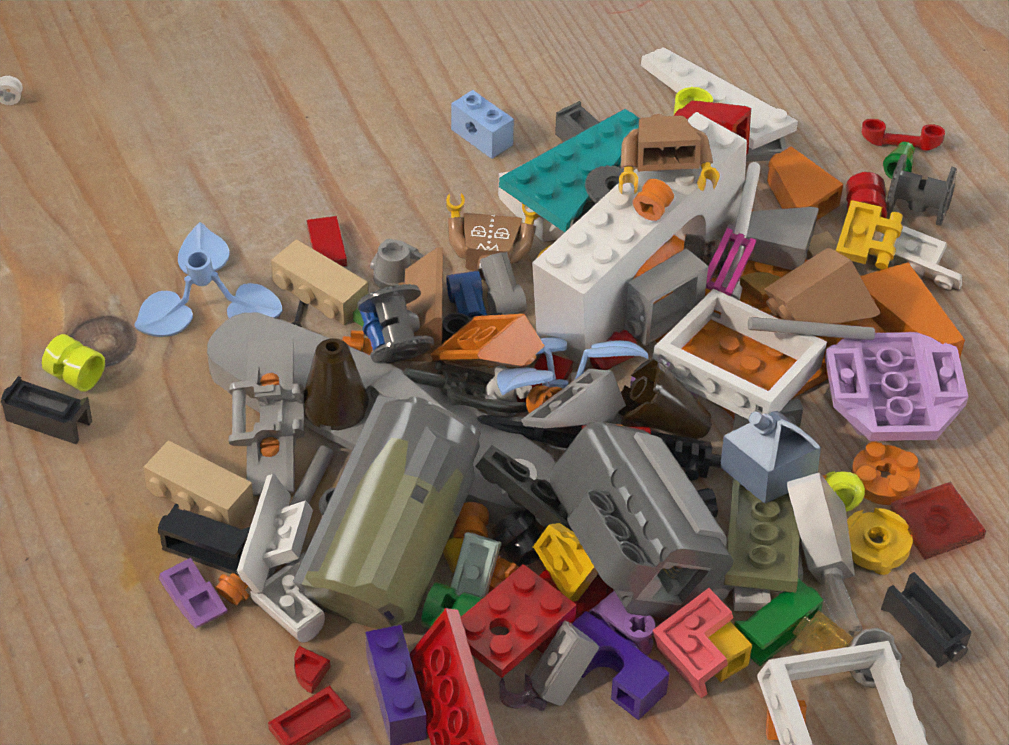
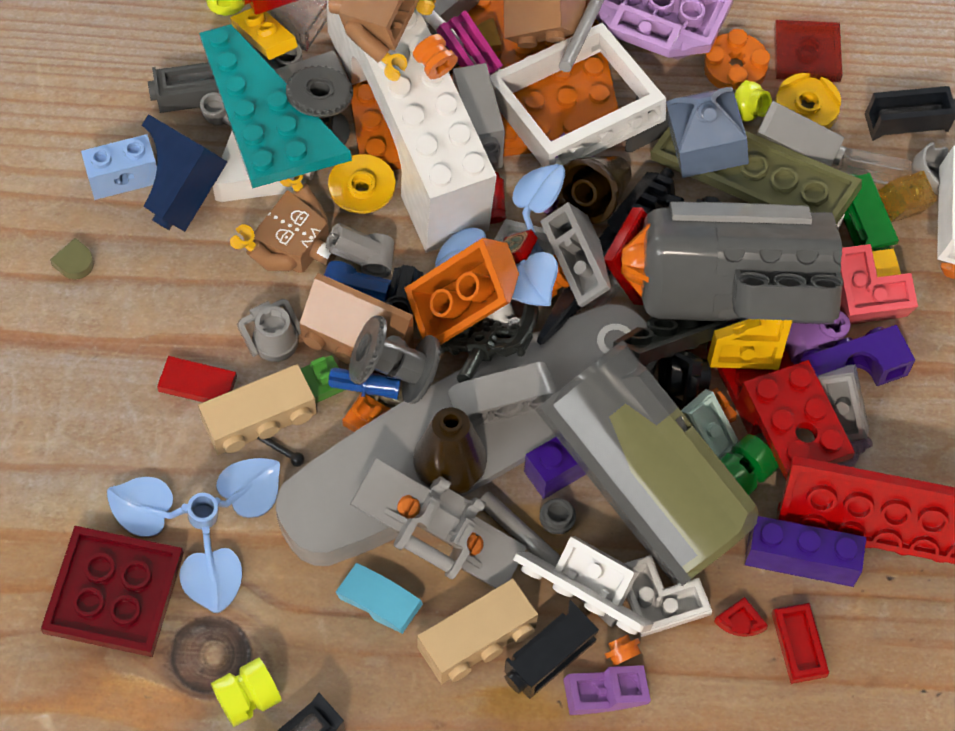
camera: 65 degrees left, 15 degrees up
(121, 261) = (112, 591): none -> dark red plate
(197, 416) = (379, 597): none -> medium azure slope
(388, 136) = (73, 260): none -> olive tile
(494, 153) = (182, 175): none -> dark blue arch
(558, 369) = (521, 244): none -> red tile

